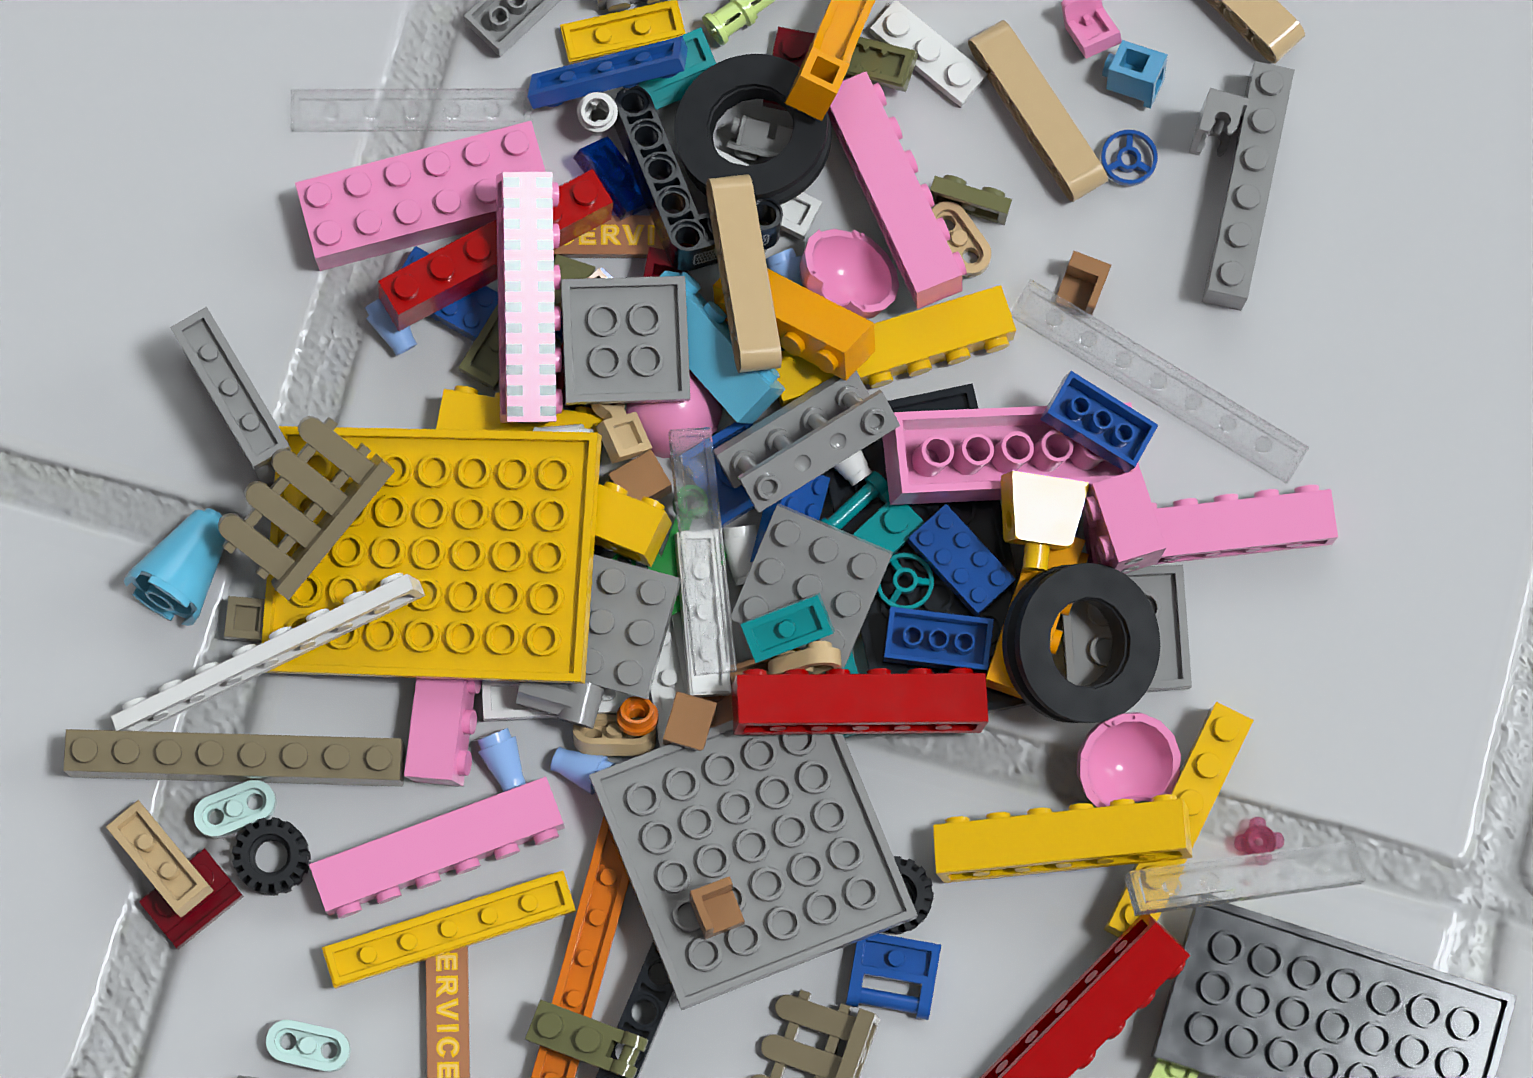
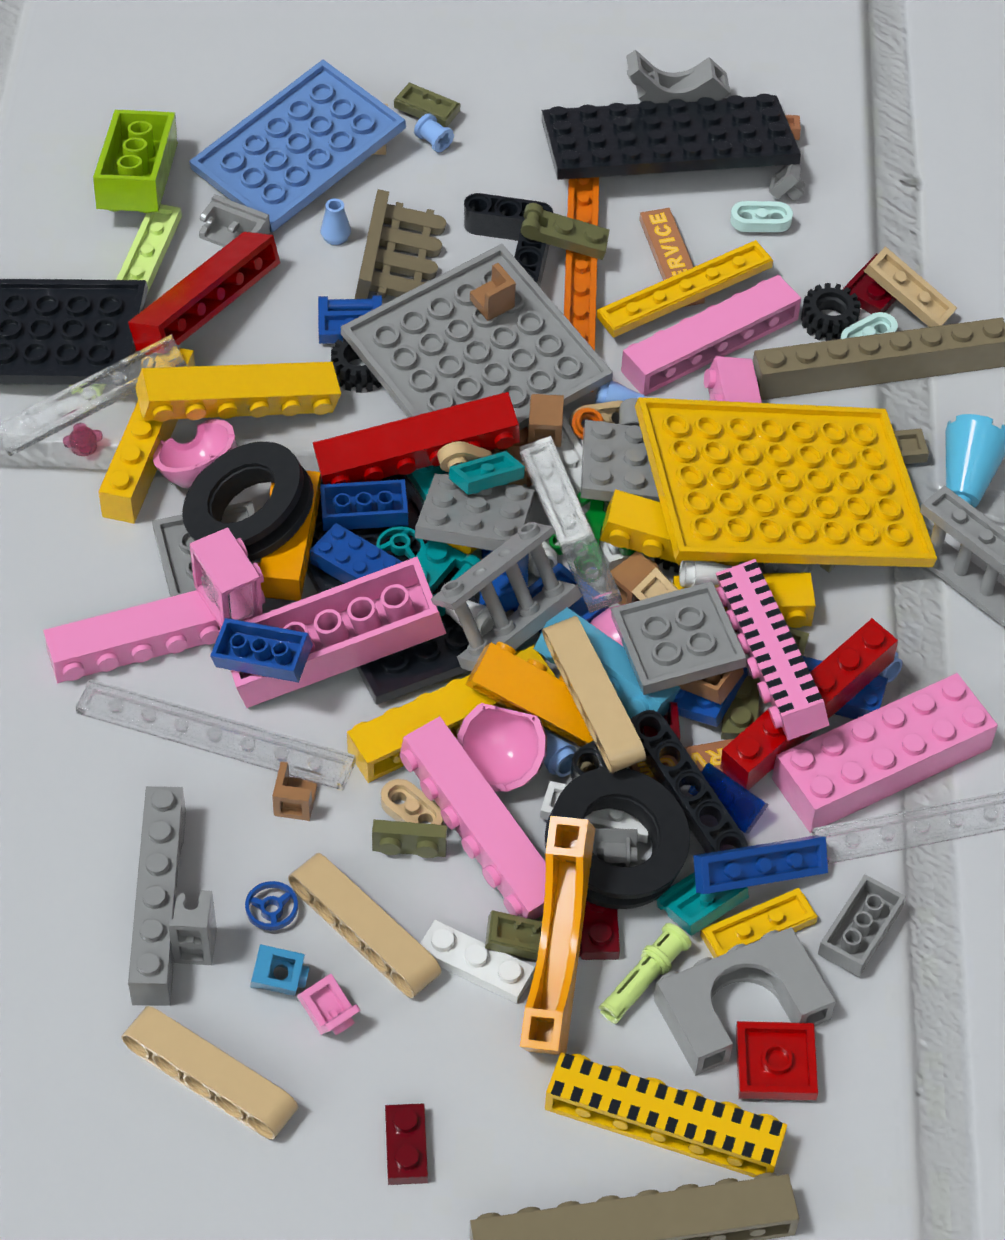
camera: 170 degrees right, 25 degrees down
(282, 647) = (879, 405): white plate -> none
(314, 538) = (891, 481): dark tan fence -> none
(502, 758) = (679, 389): light blue cone -> none
(597, 103) = (759, 828): white cone -> none
(1040, 514) = (297, 570): torso -> none

